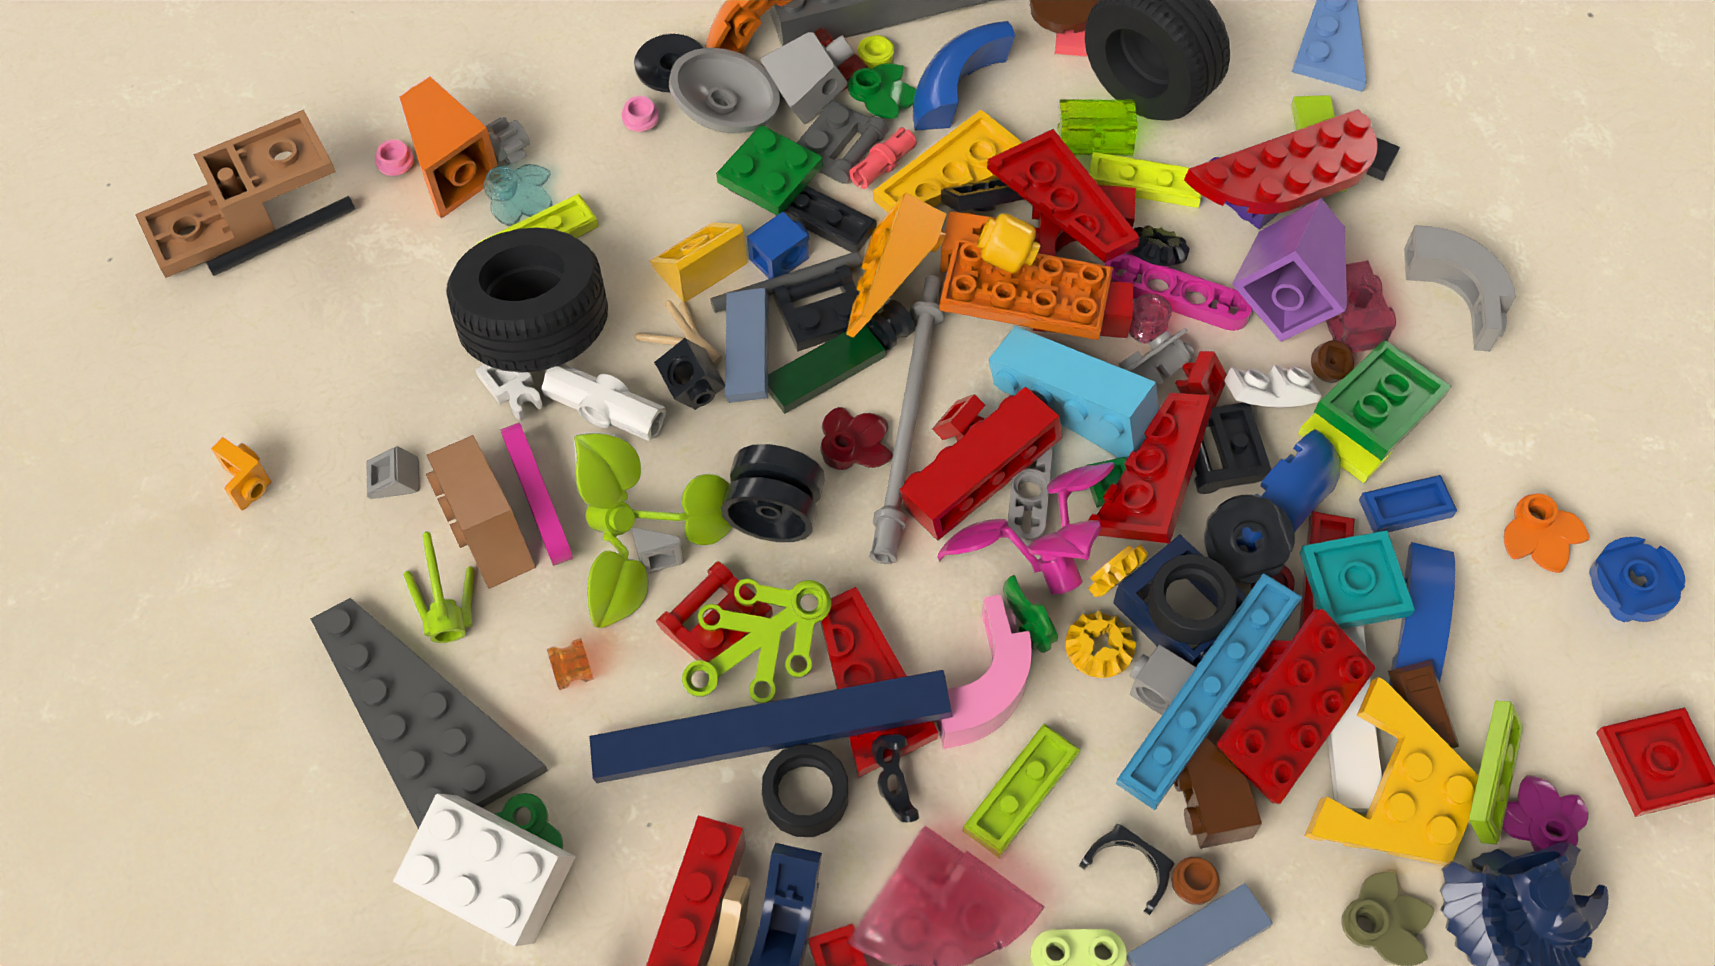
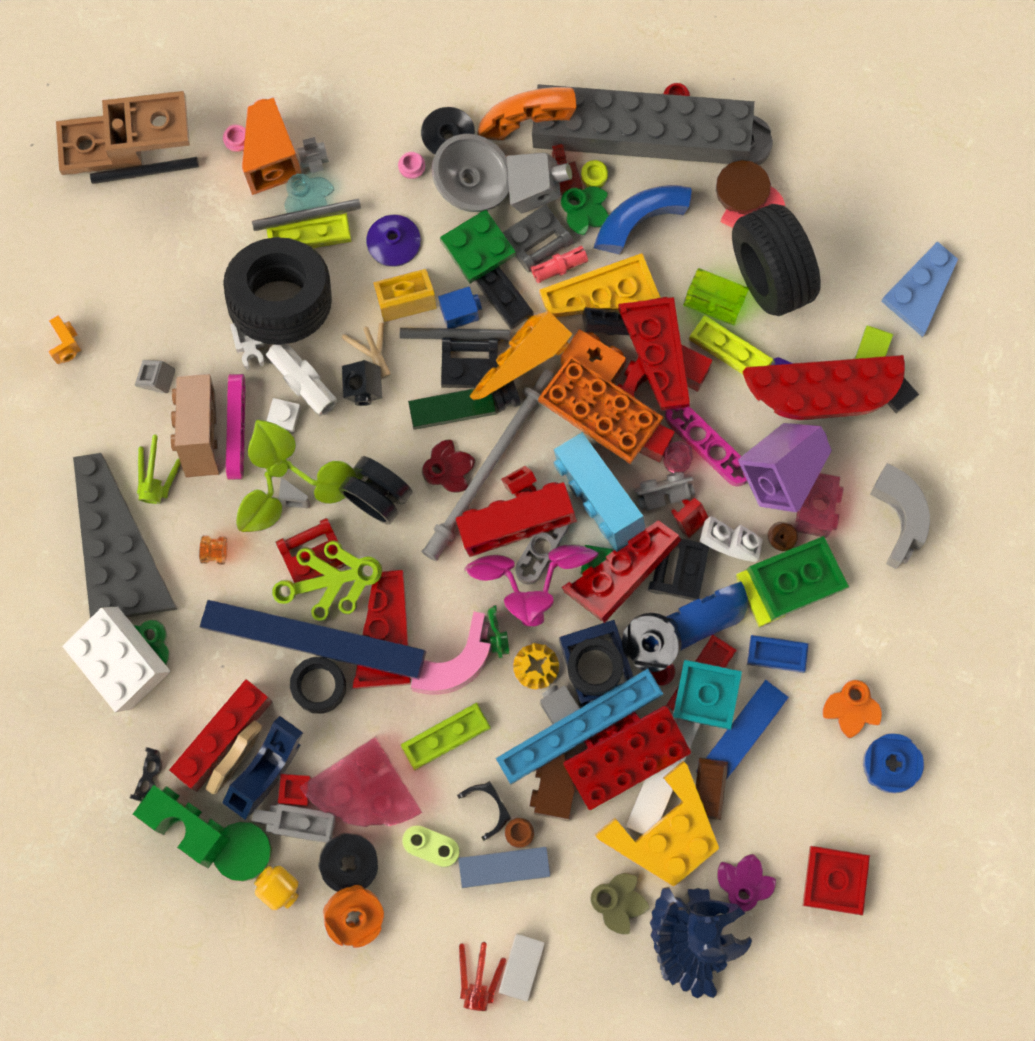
camera: 25 degrees right, 15 degrees up
(525, 210) = (307, 214): none -> flat silver bar
(653, 217) = (396, 251): none -> dark purple dish
(746, 345) = (407, 374): sand blue tile -> none
(898, 799) = (372, 685): black cap -> none
(1008, 243) = (595, 378): yellow head -> none
(1117, 569) = (565, 625): yellow gear -> none
(1160, 246) = (703, 410): black gear -> none
(1496, 773) = (729, 845): lime tile -> none

